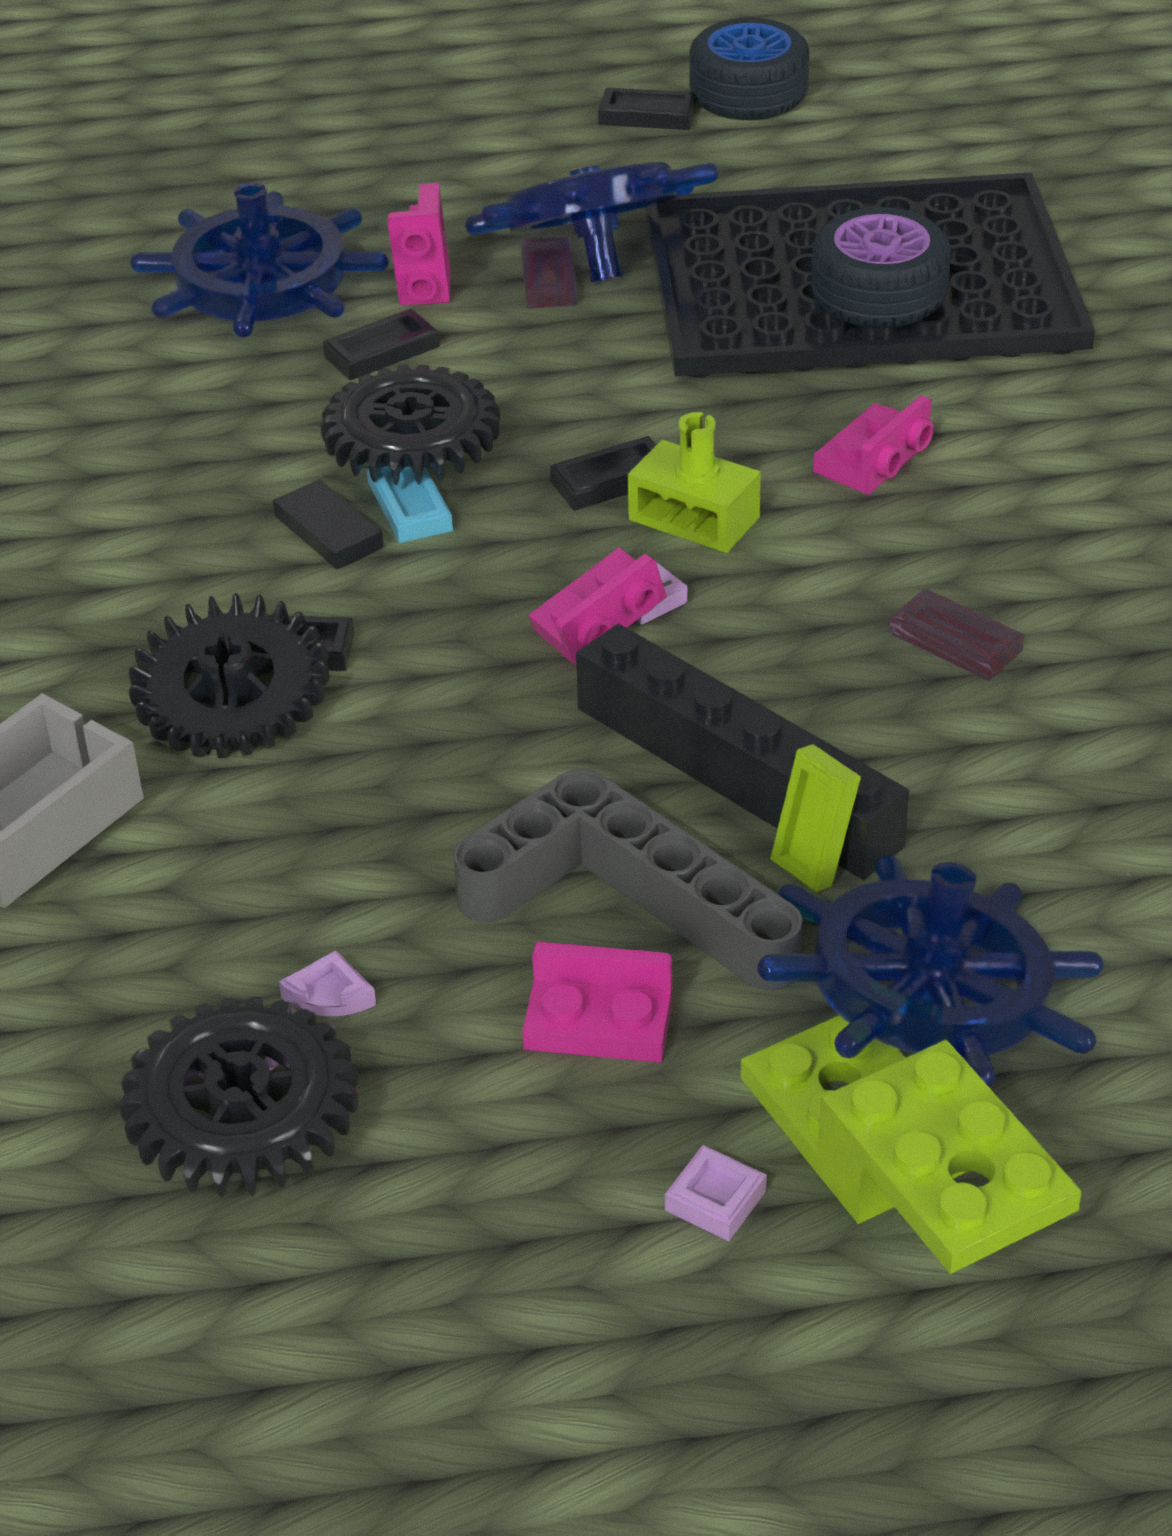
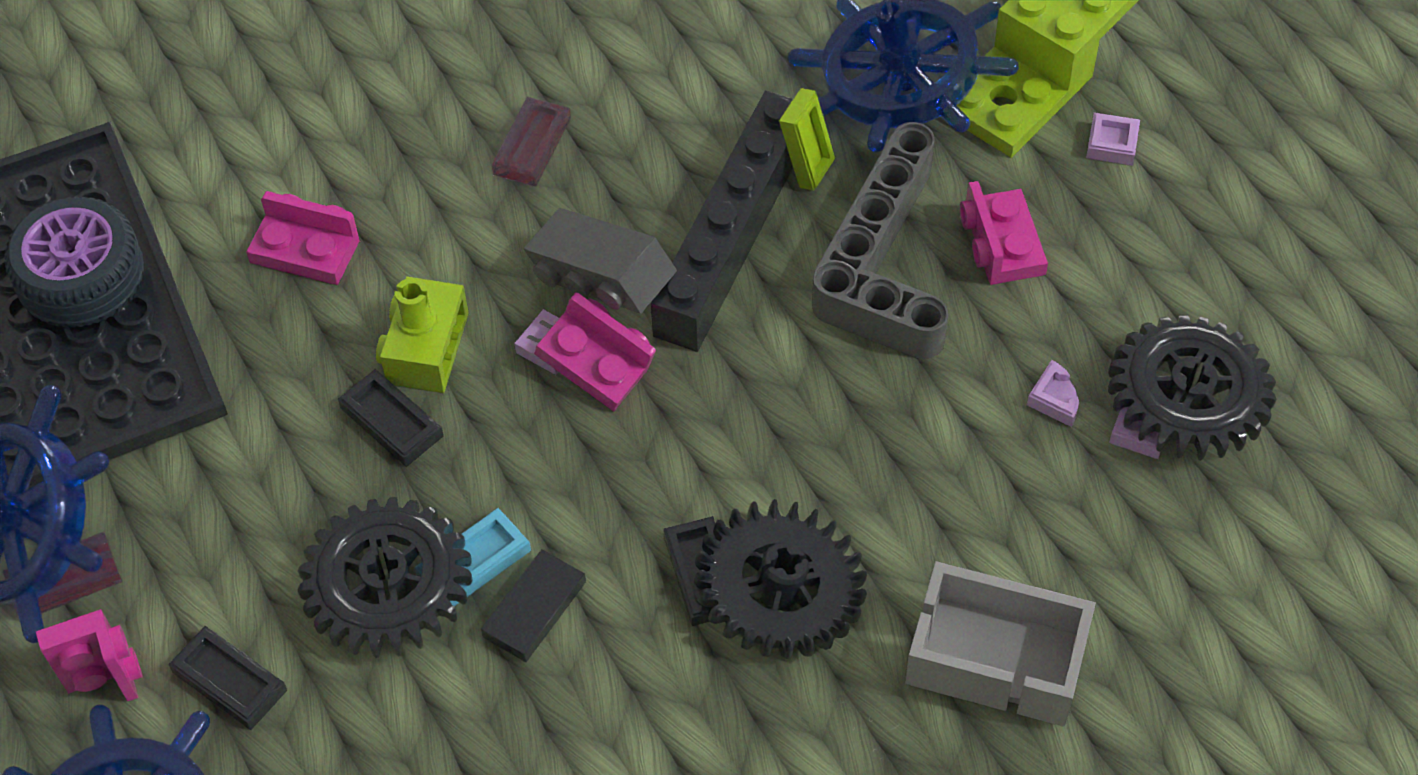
camera: 110 degrees left, 15 degrees up
(702, 599) = (600, 260): none -> dark grey brick

